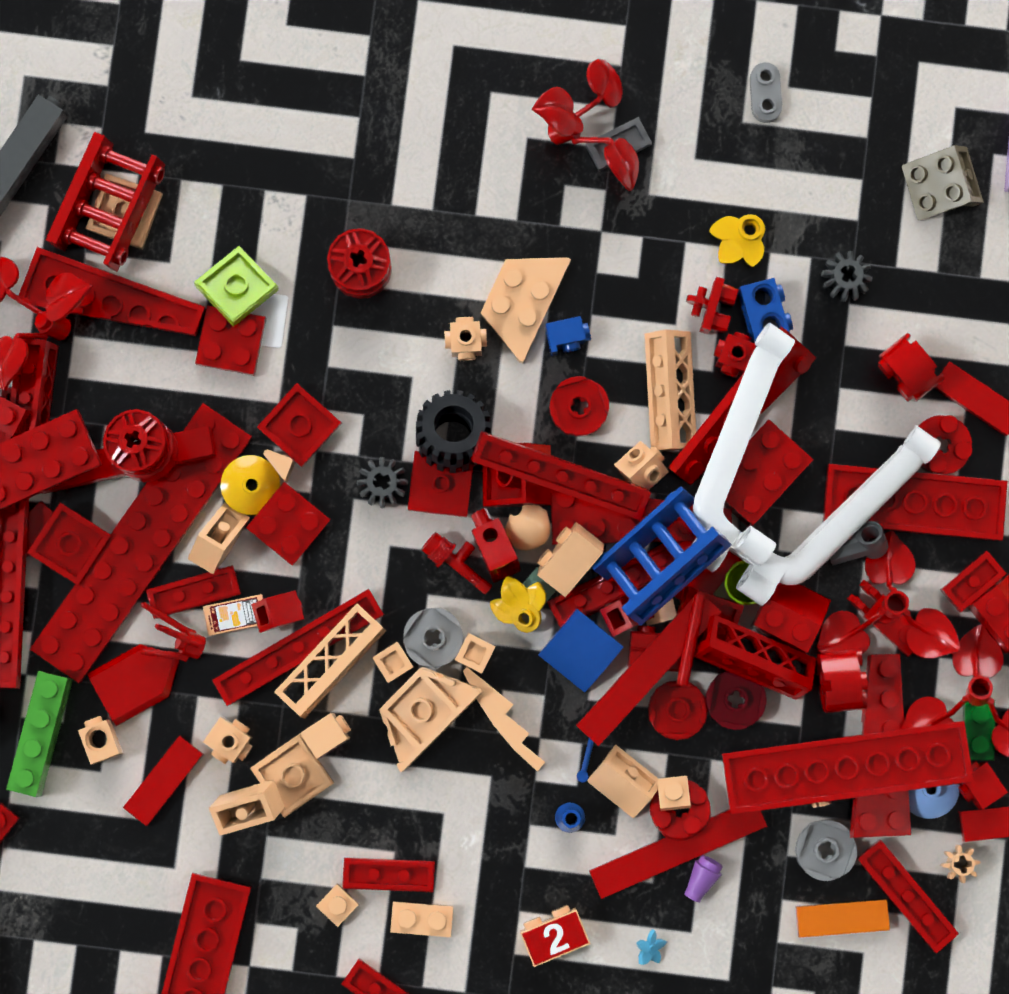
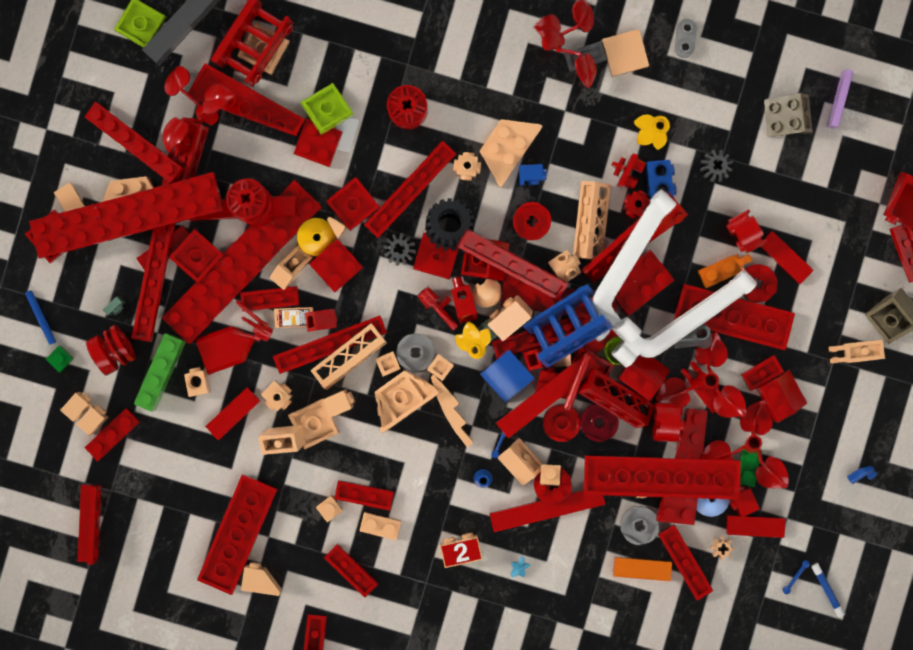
camera: 15 degrees right, 5 degrees up
(384, 388) = (410, 189): none -> red plate
(678, 129) = (625, 53): none -> light nougat tile
(703, 877) = (560, 528): medium lavender cone -> none
(885, 432) = (723, 269): none -> orange hinge

